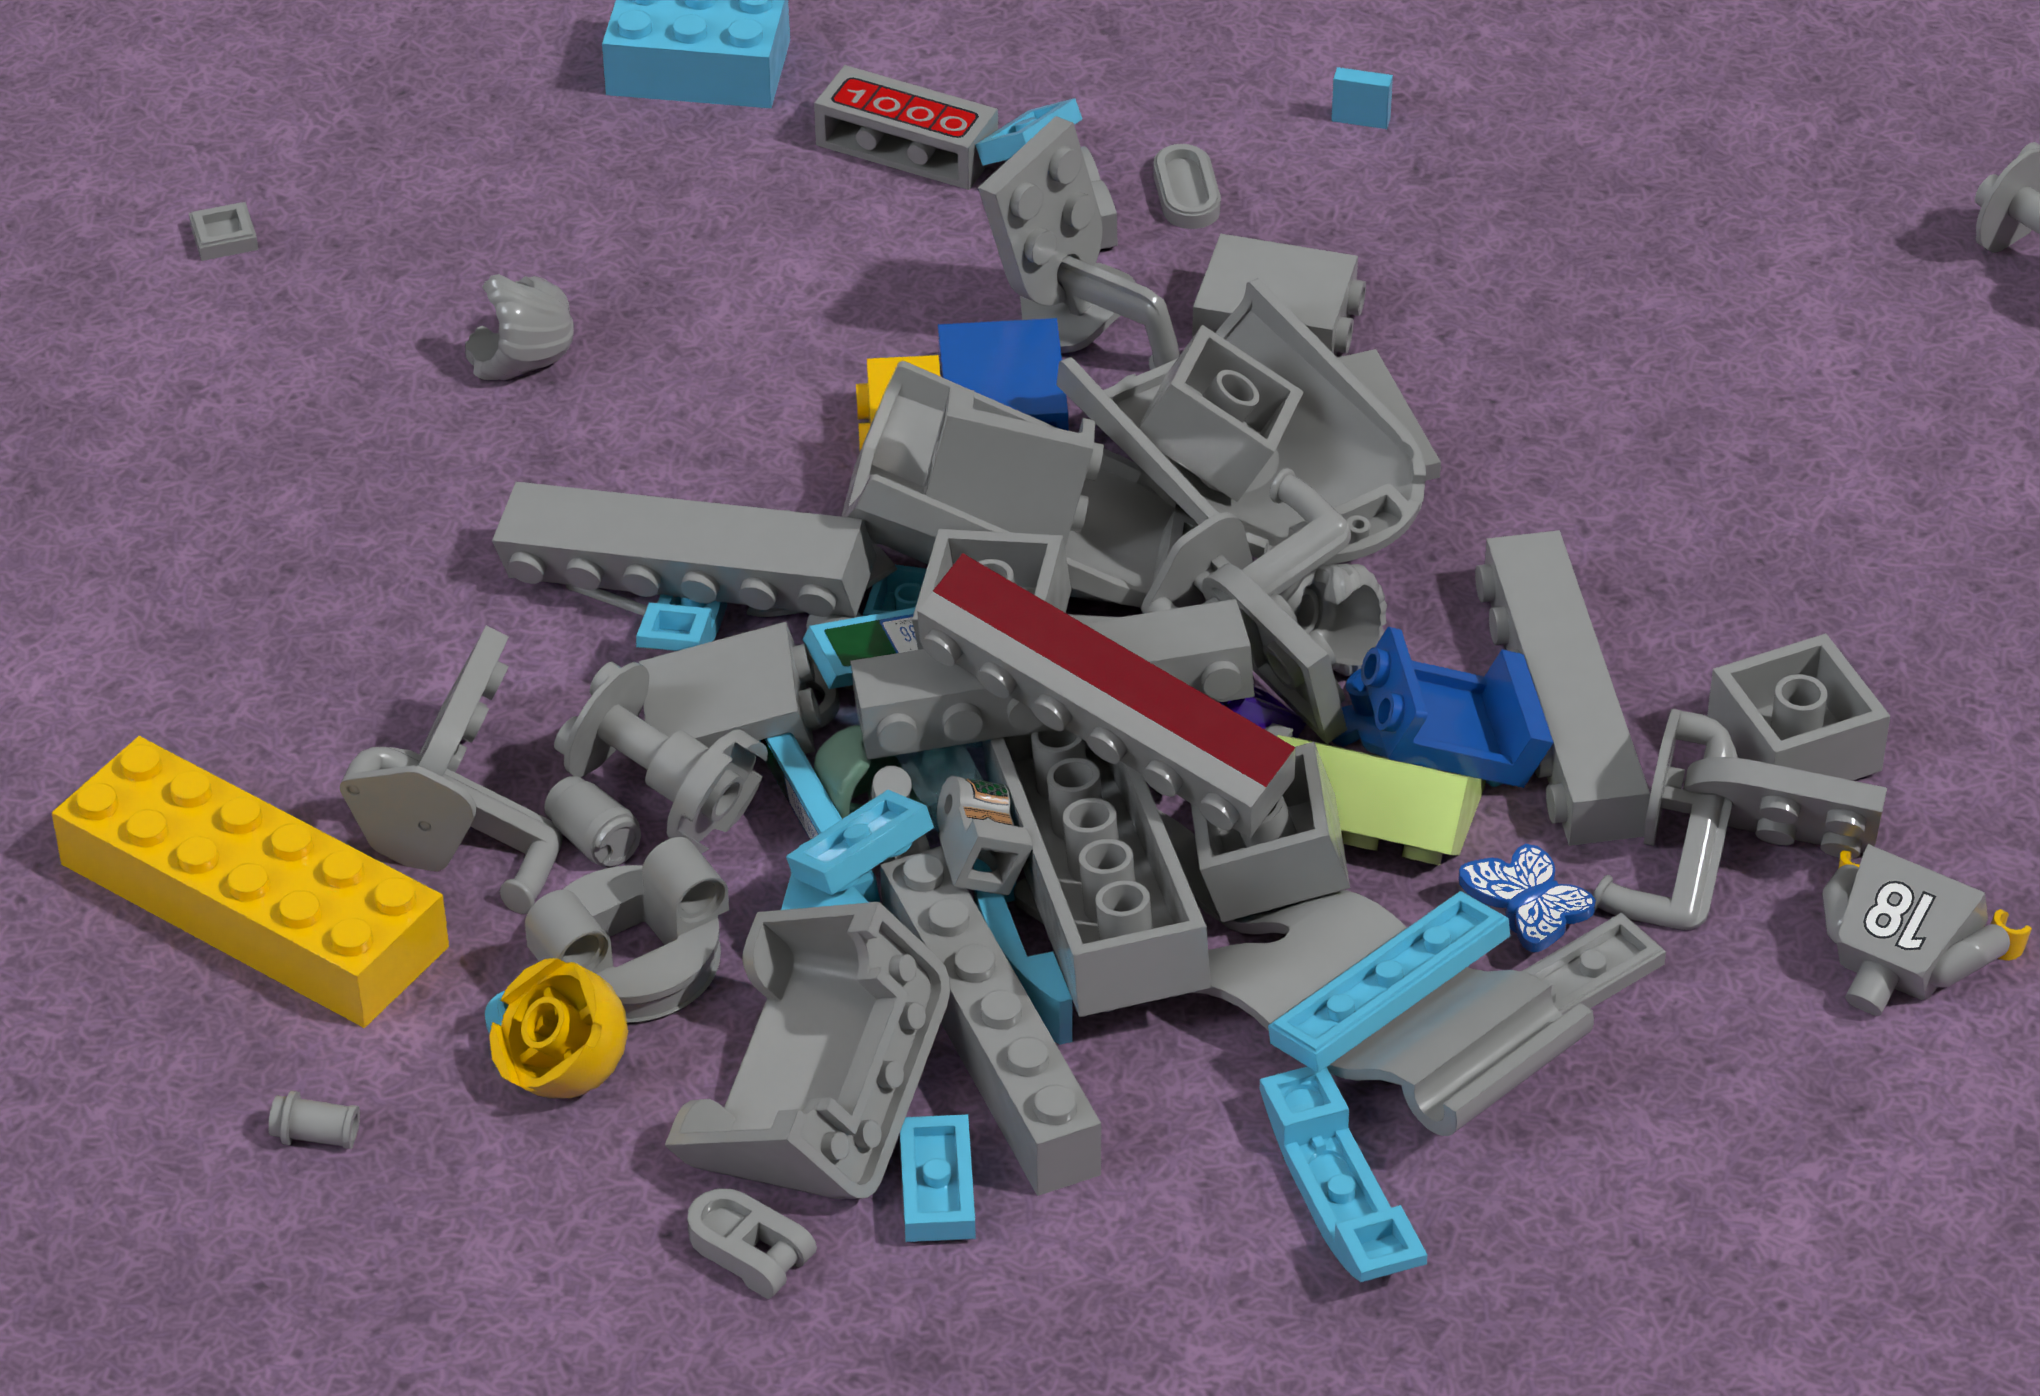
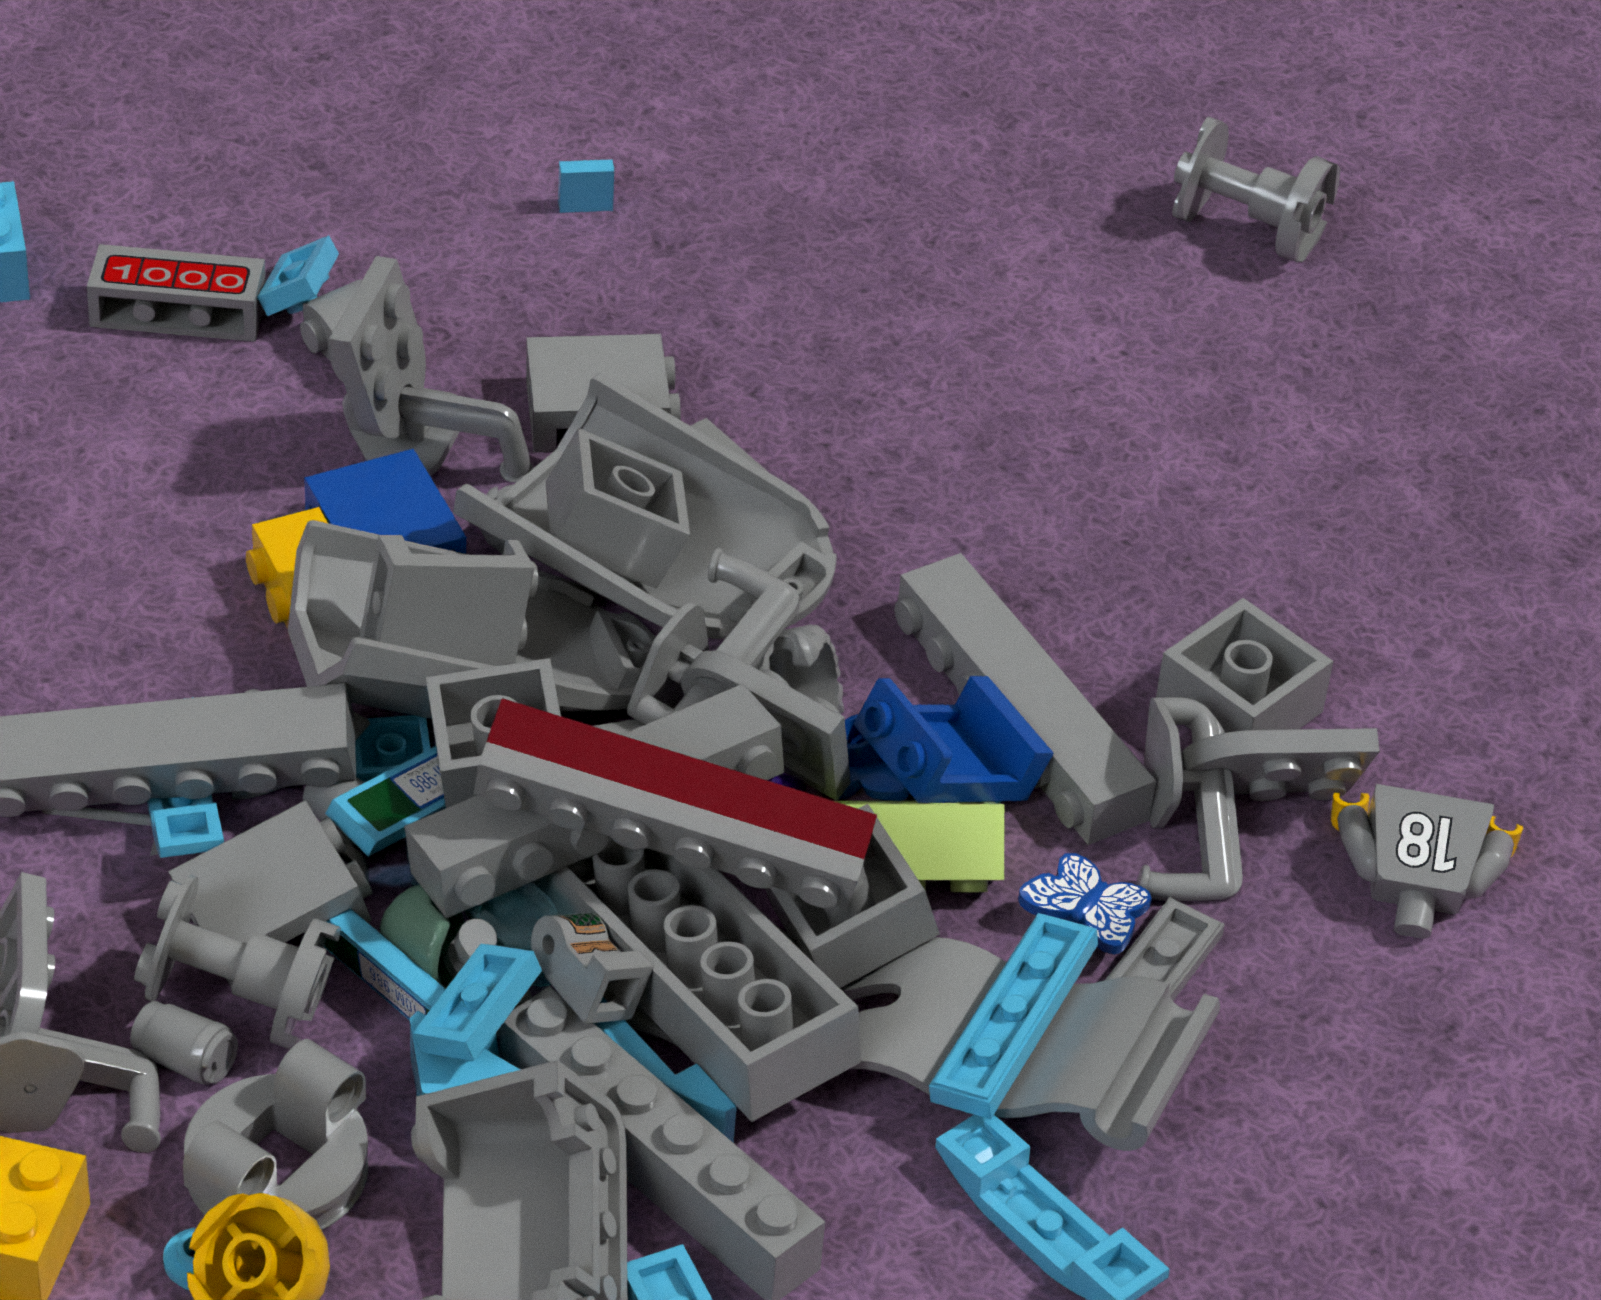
camera: 25 degrees left, 0 degrees up
(1186, 186) = (459, 299): light grey tile -> none

